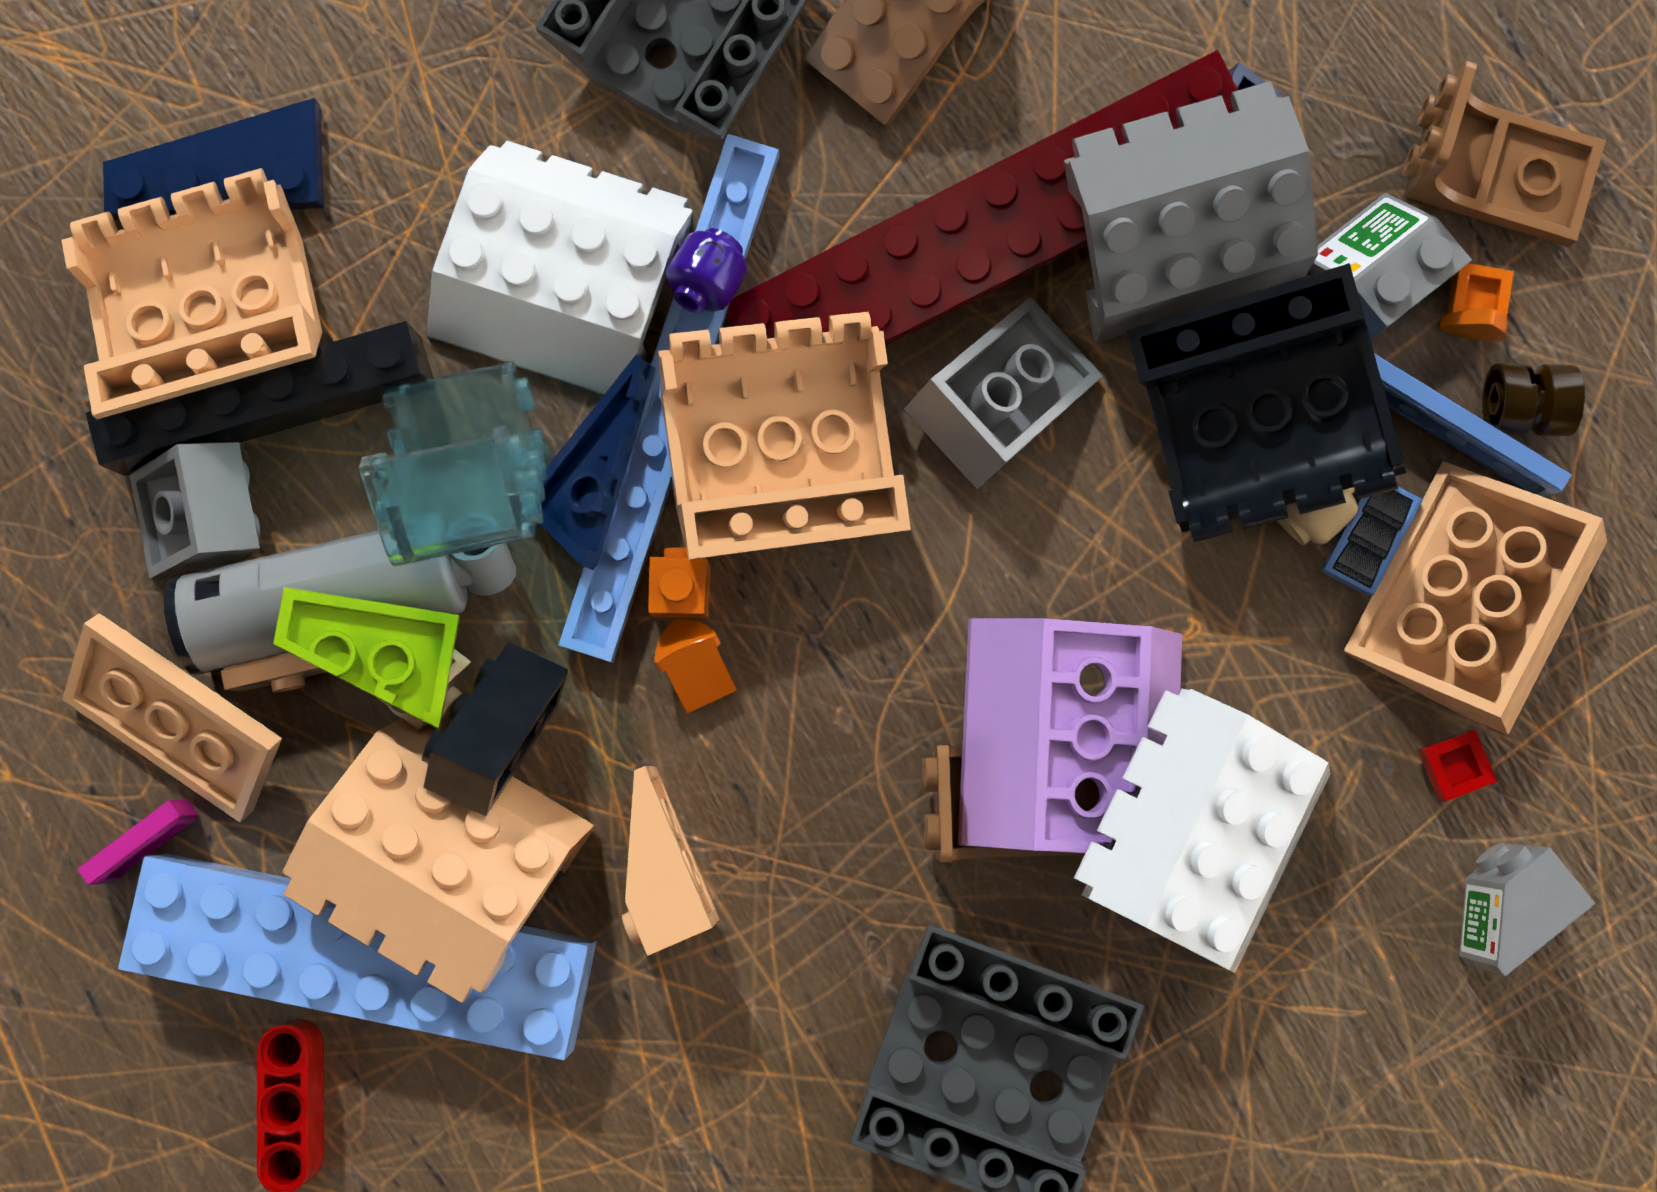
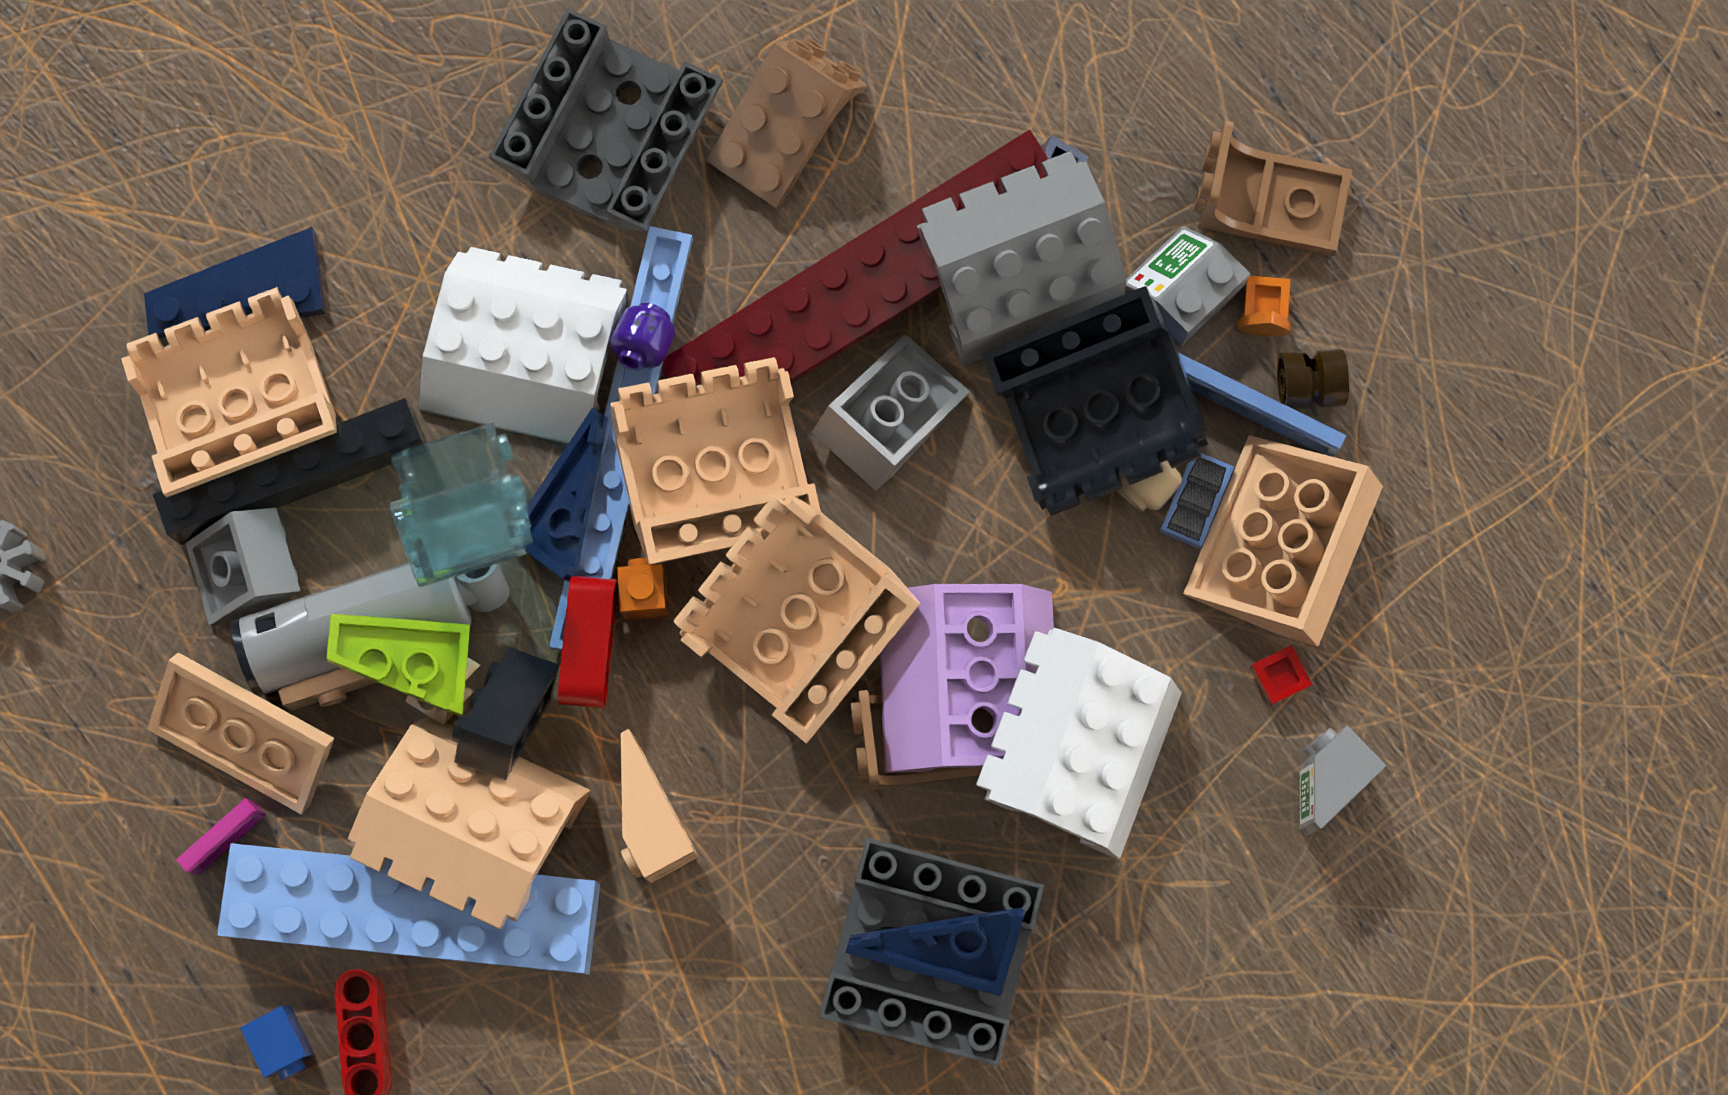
camera: 10 degrees left, 5 degrees down
(186, 1103) = (278, 1043): none -> blue brick
(605, 646) = (587, 642): none -> red beam
(693, 663) = (660, 651): orange tile -> none
(870, 636) = (797, 612): none -> light nougat slope
(1033, 1076) = (960, 950): none -> dark blue wing

